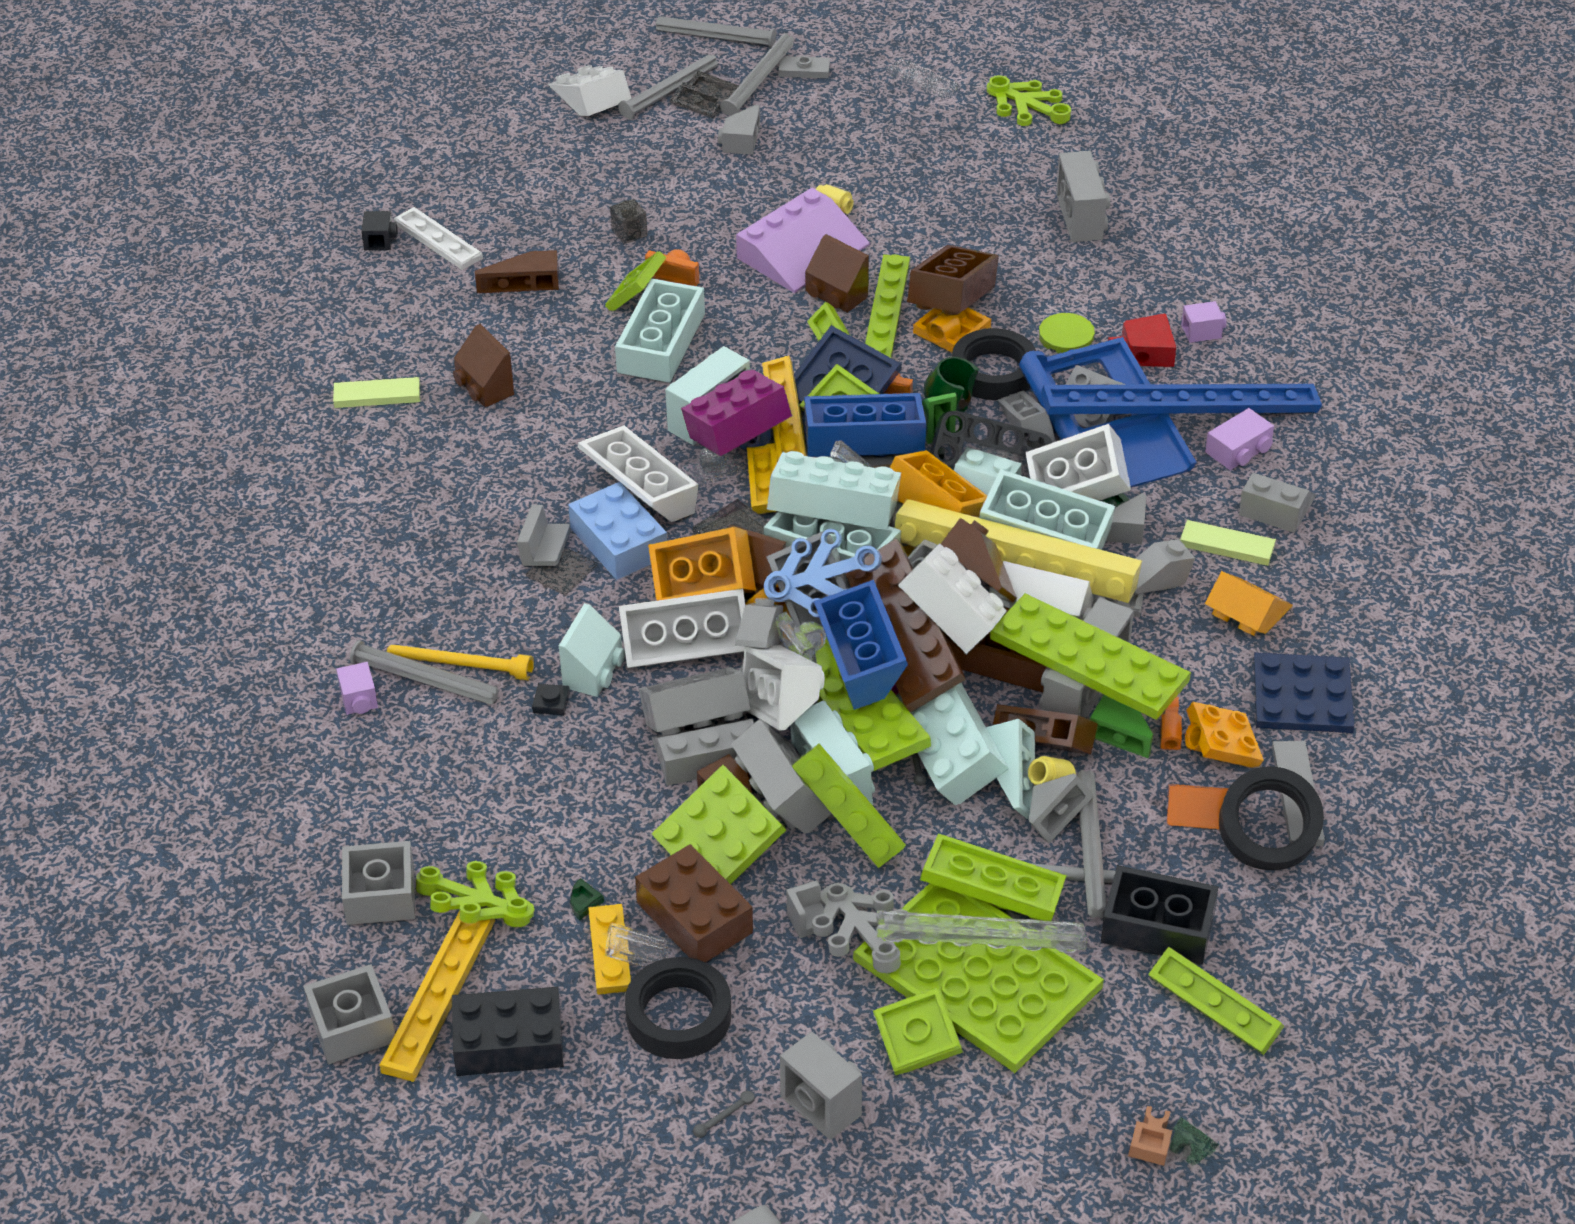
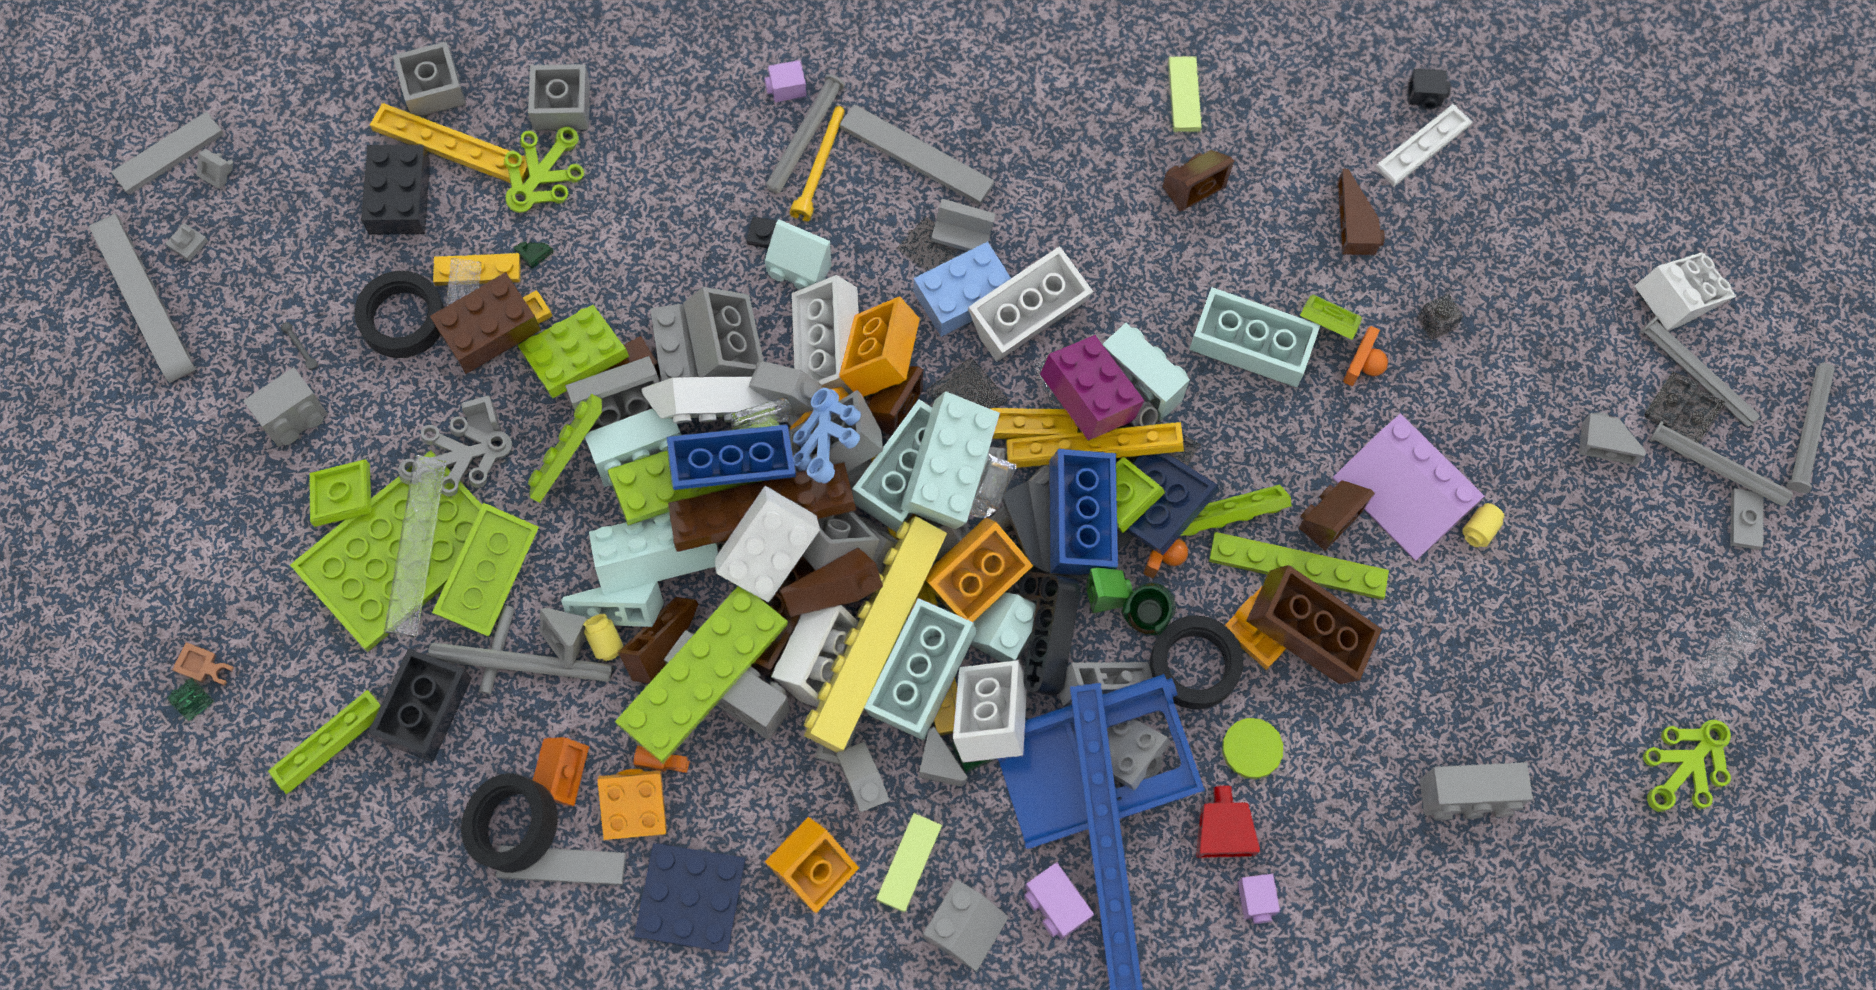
camera: 90 degrees right, 25 degrees up
(448, 585) = (917, 154): none -> light grey tile

